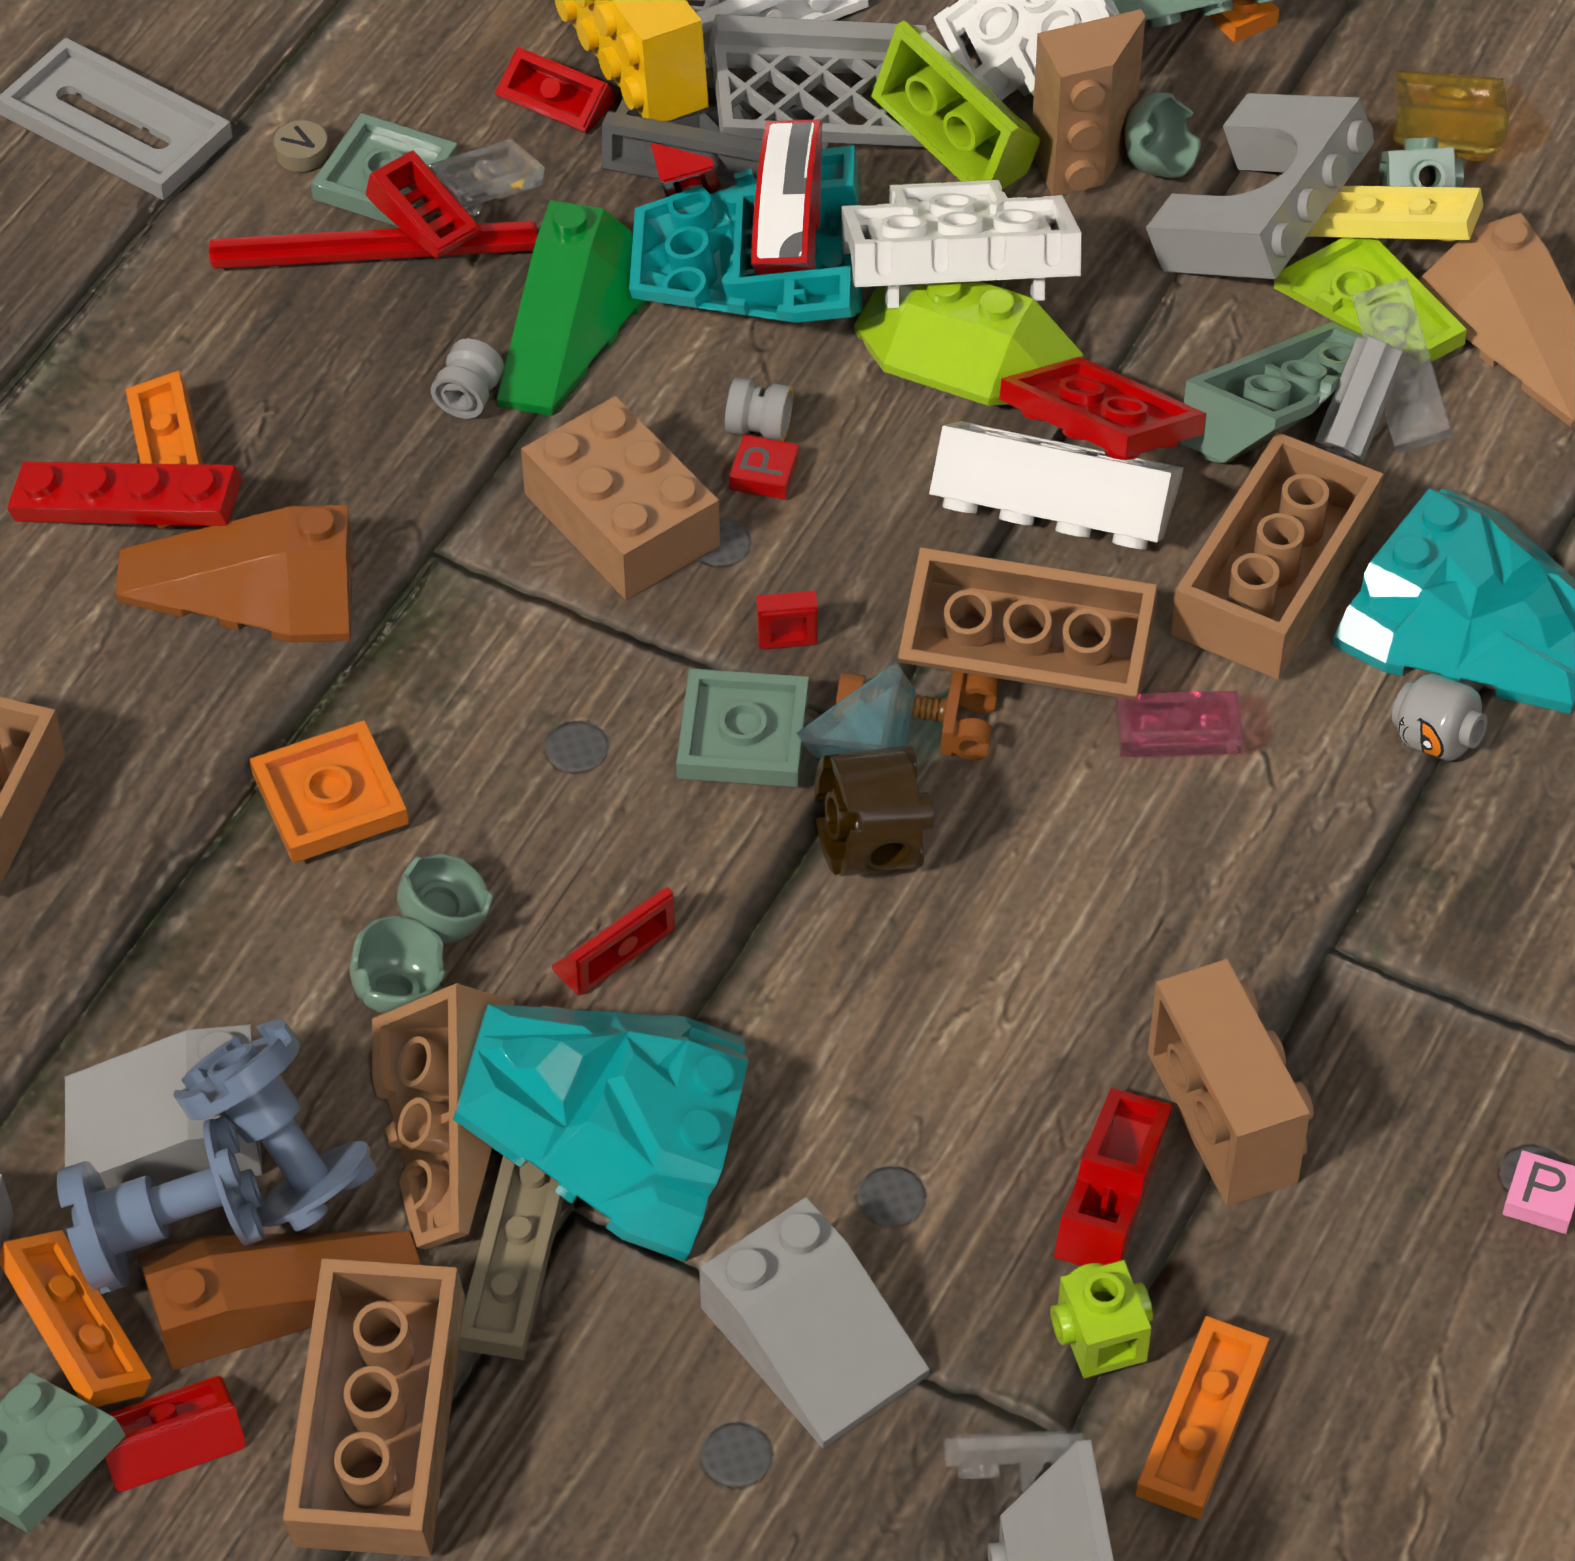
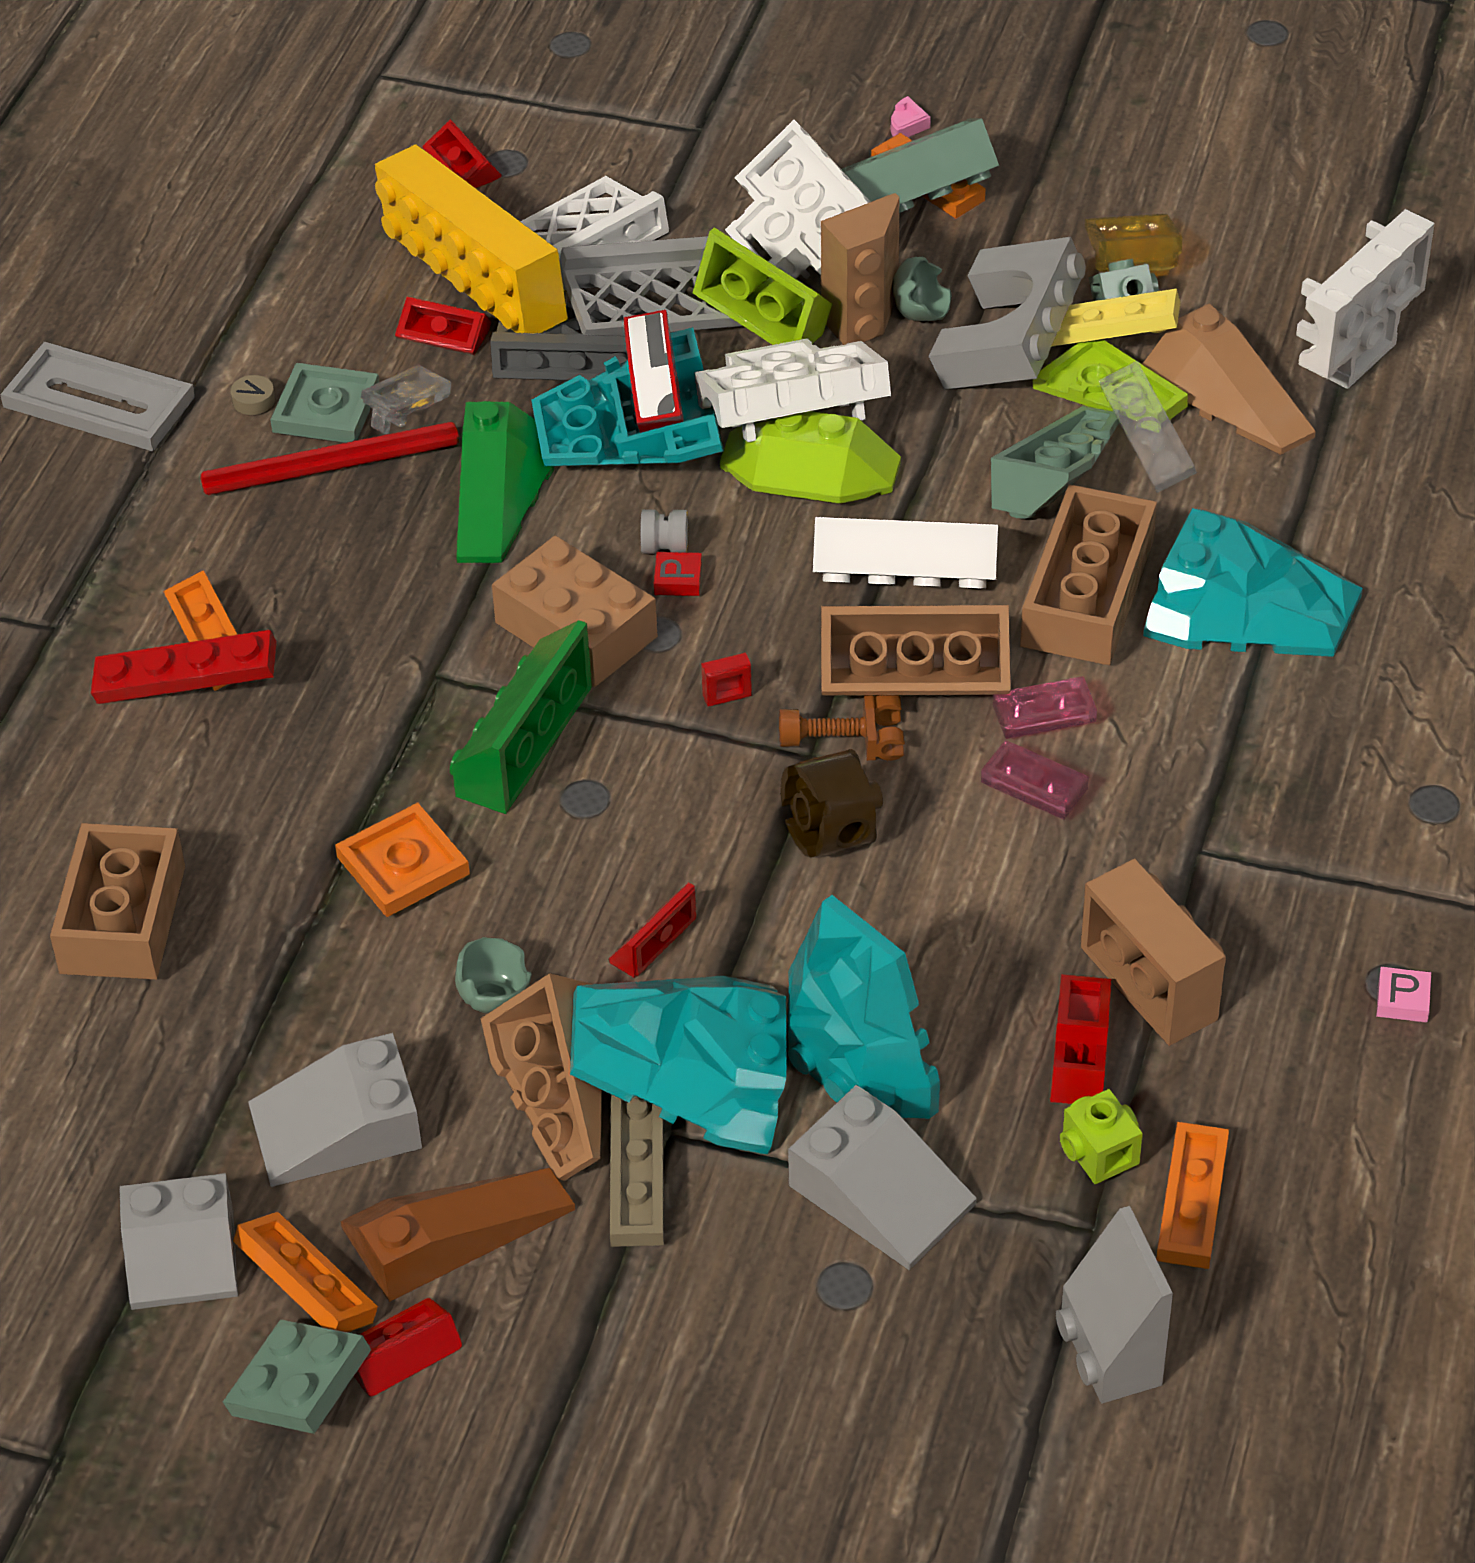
camera: 10 degrees left, 5 degrees down
(138, 1212) = (339, 1184): sand blue piece -> none
(261, 1106) = (423, 1087): sand blue piece -> none
(262, 571) = (311, 706): dark orange wedge -> none
(375, 1408) = (563, 1293): medium nougat brick -> none
(412, 172) = (351, 398): red slope -> none
(444, 896) = (515, 918): sand green hair -> none
(465, 382) = (431, 543): light grey wheel -> none
(522, 634) = (524, 720): none -> green slope
(683, 170) = (562, 364): red slope -> none
(742, 727) = (712, 762): sand green plate -> none
(822, 1110) = (853, 1015): none -> teal wedge
(866, 719) = (808, 737): clear light blue slope -> none
(983, 1453) = (1034, 1249): clear plate -> none
(1102, 407) = (929, 489): red plate -> none
(1142, 819) = (1034, 779): none -> clear pink plate
(1360, 398) = (1123, 450): light grey axle -> none
(1439, 717) = (1239, 671): light grey head -> none

